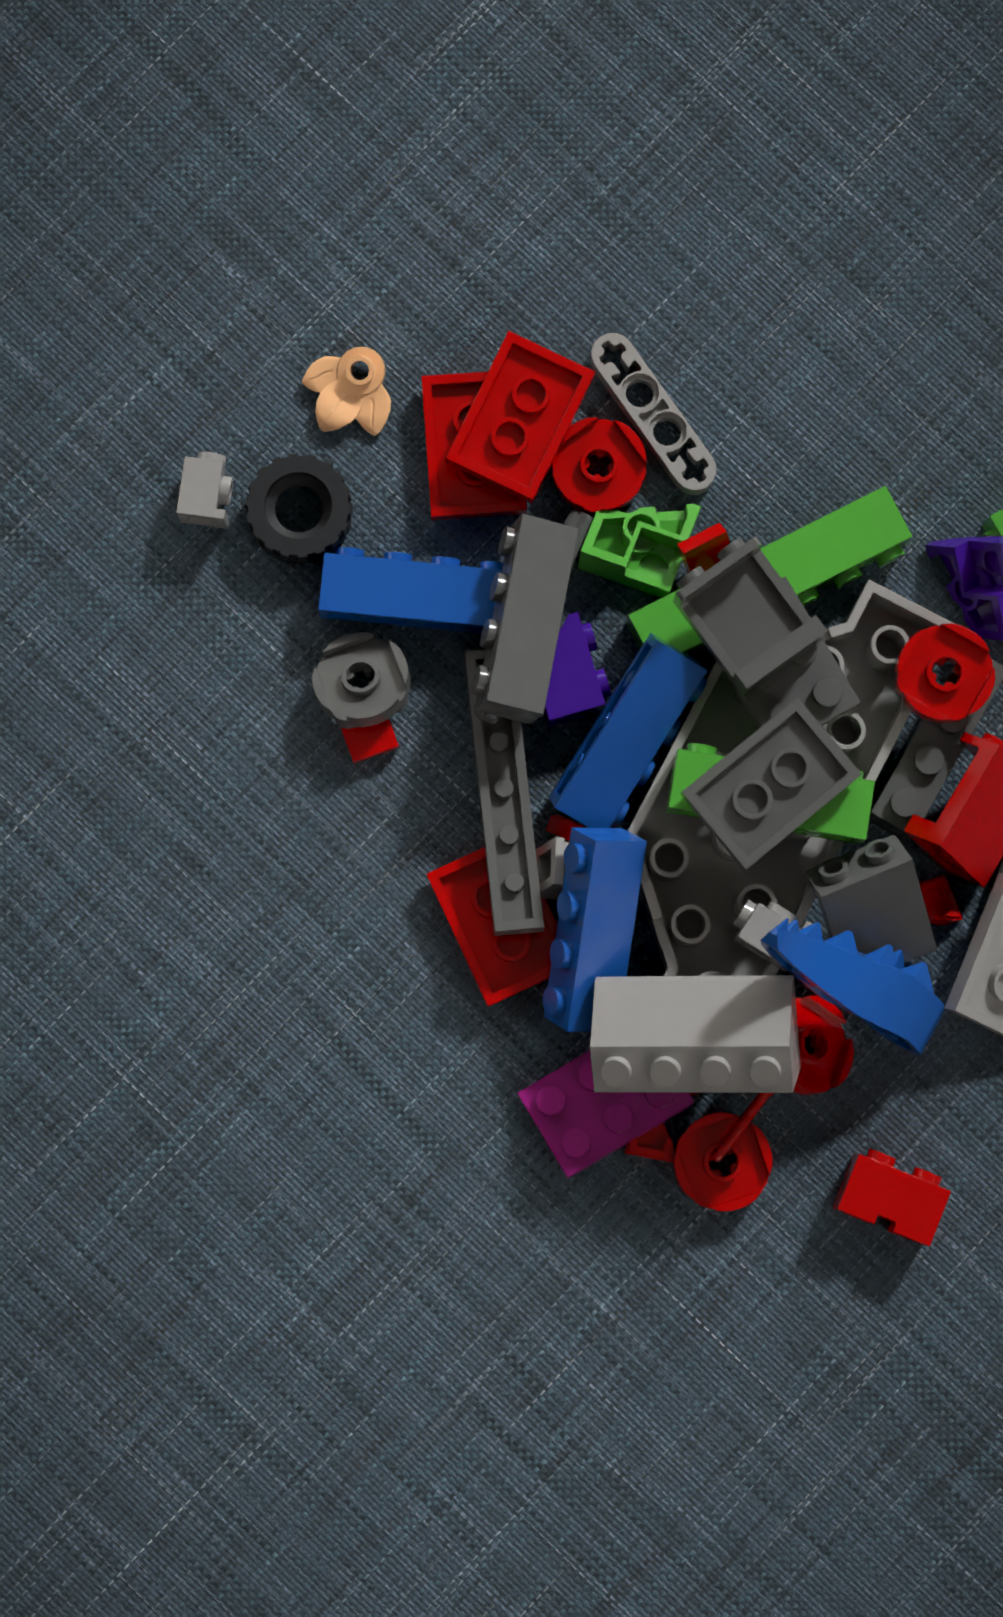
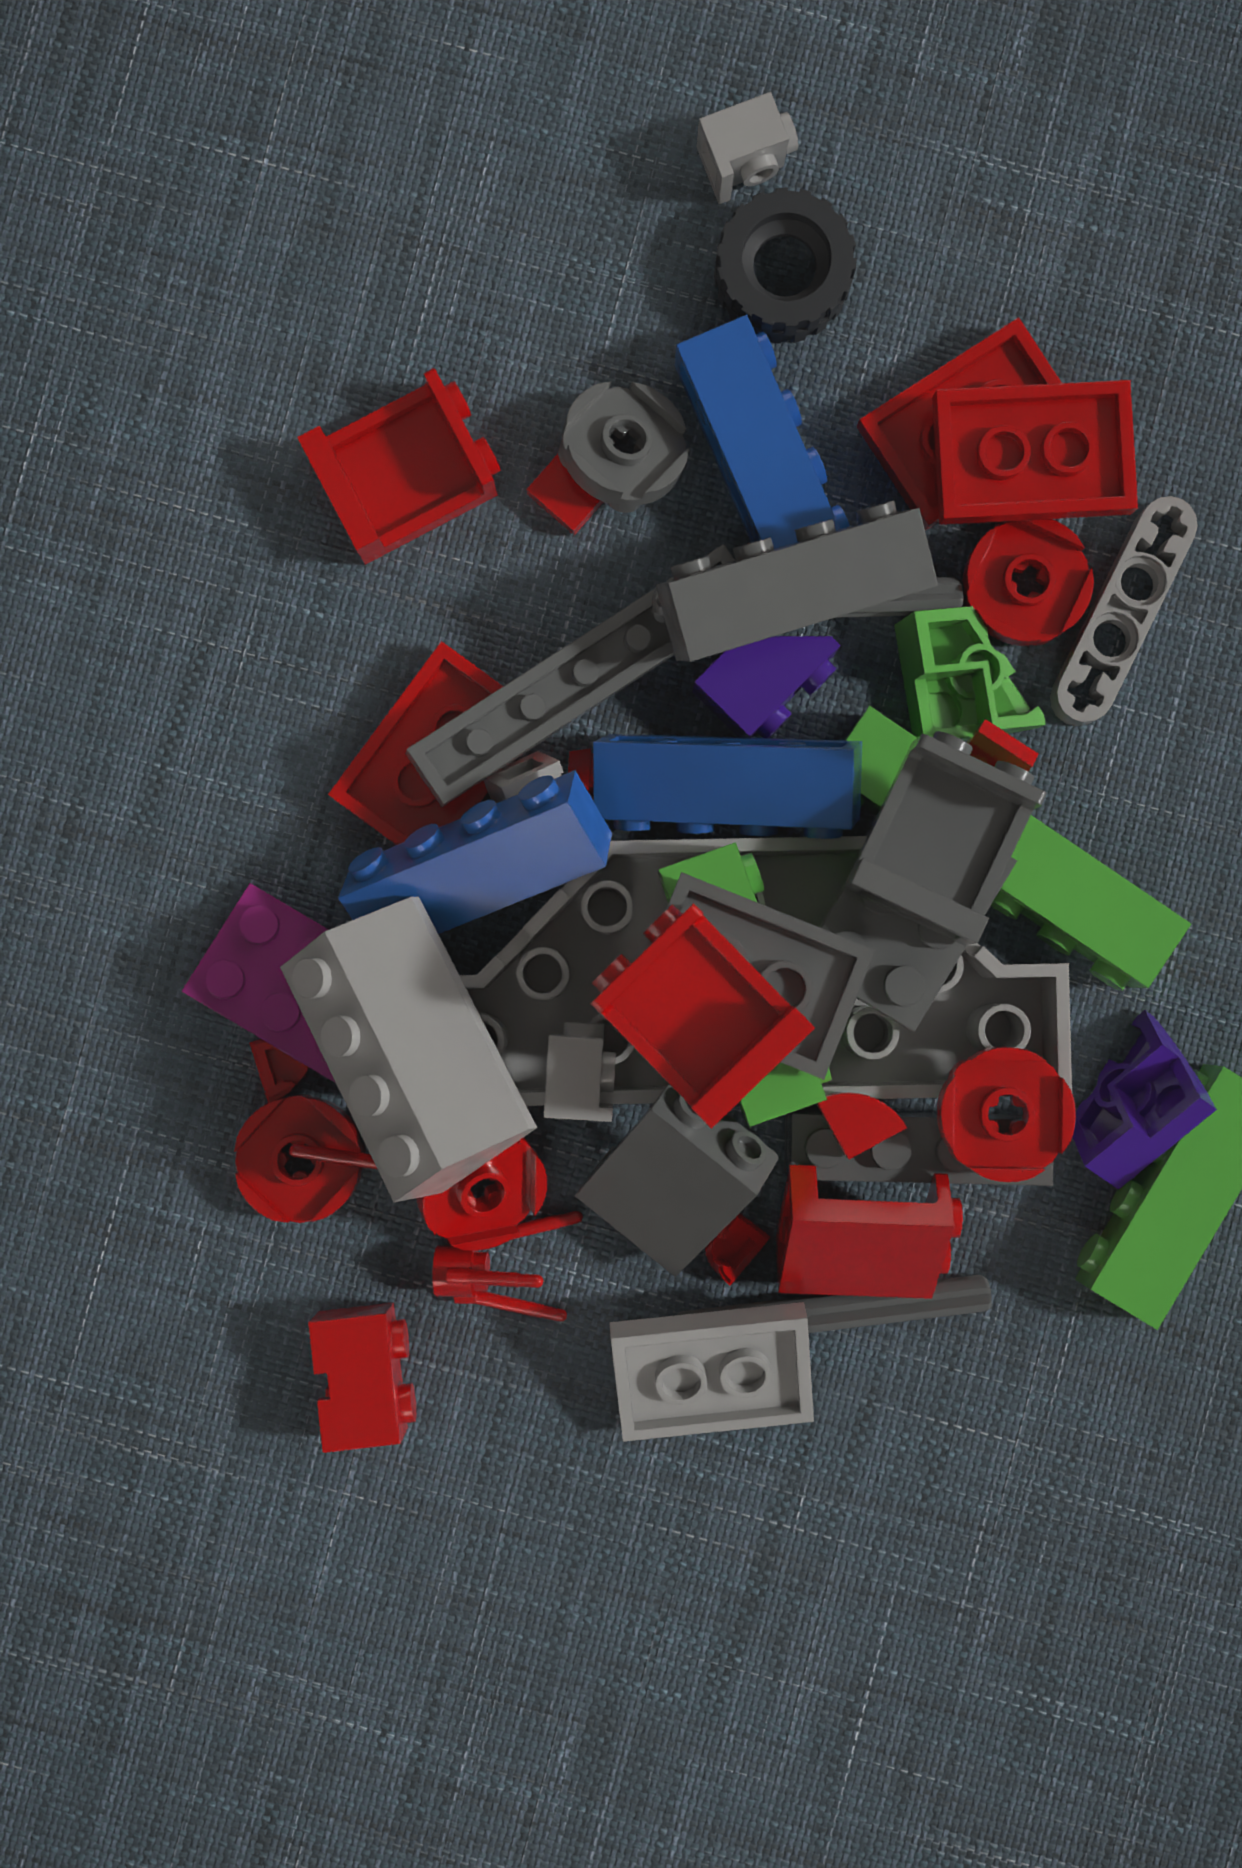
camera: 65 degrees right, 5 degrees up
(292, 836) = (403, 468): none -> red panel
(346, 397) = (946, 252): light nougat plate -> none
(779, 828) = (699, 1013): none -> red panel
(859, 1090) = (468, 1273): none -> red plant
(874, 986) = (575, 1219): blue animal -> none
(899, 770) = (859, 1121): none -> red tile

